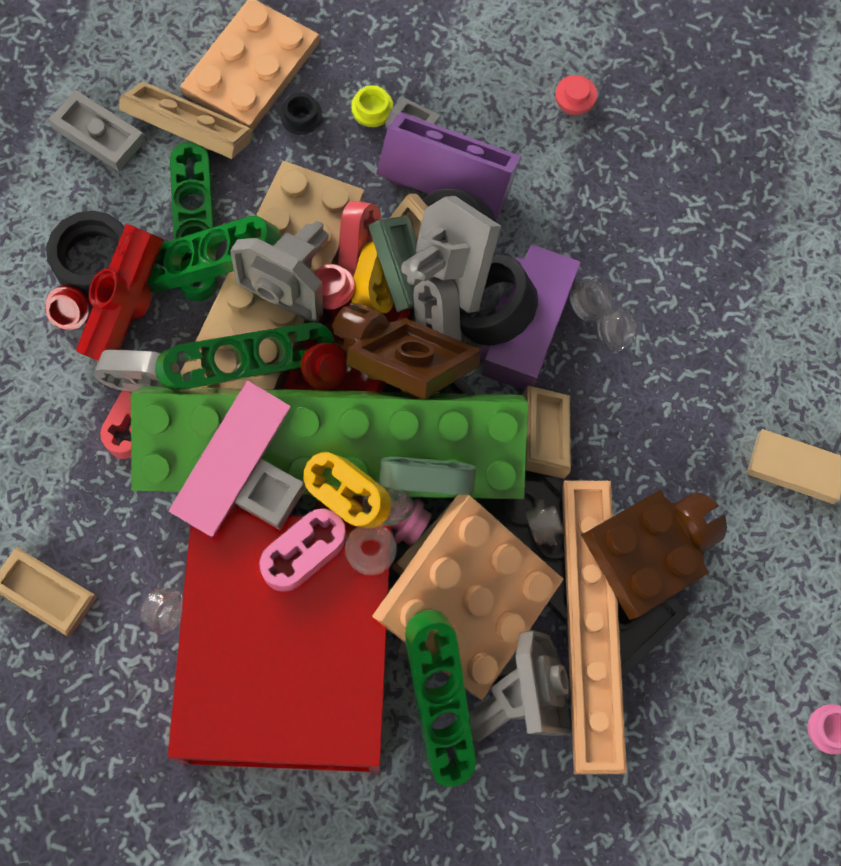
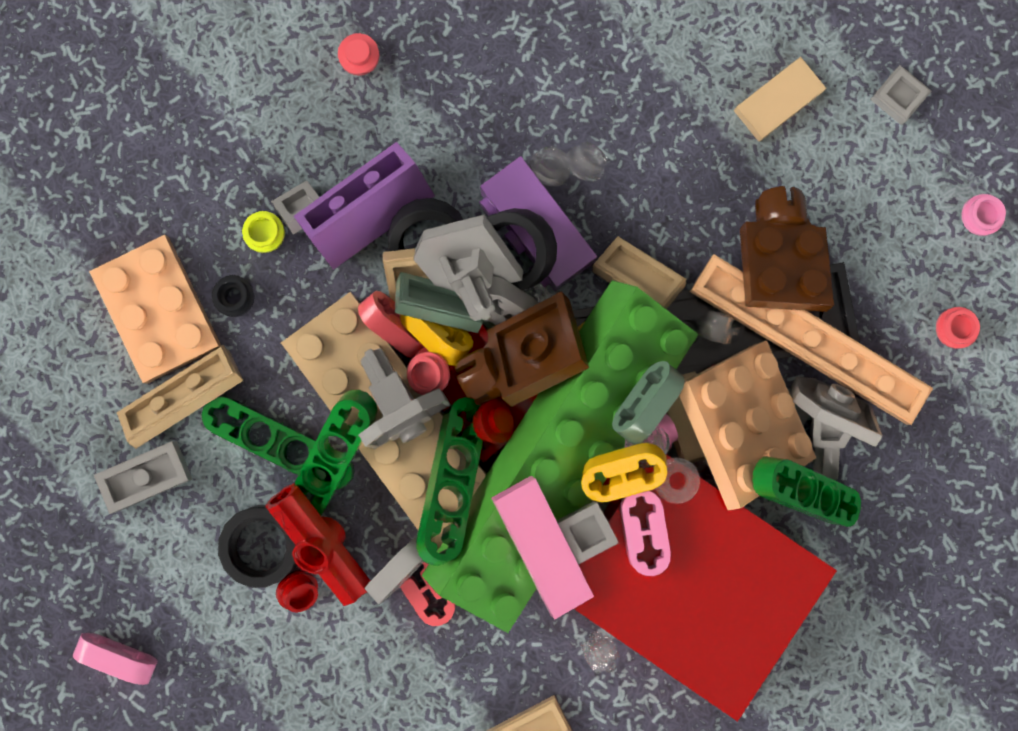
camera: 55 degrees left, 15 degrees up
(705, 773) = (957, 327): none -> coral plate

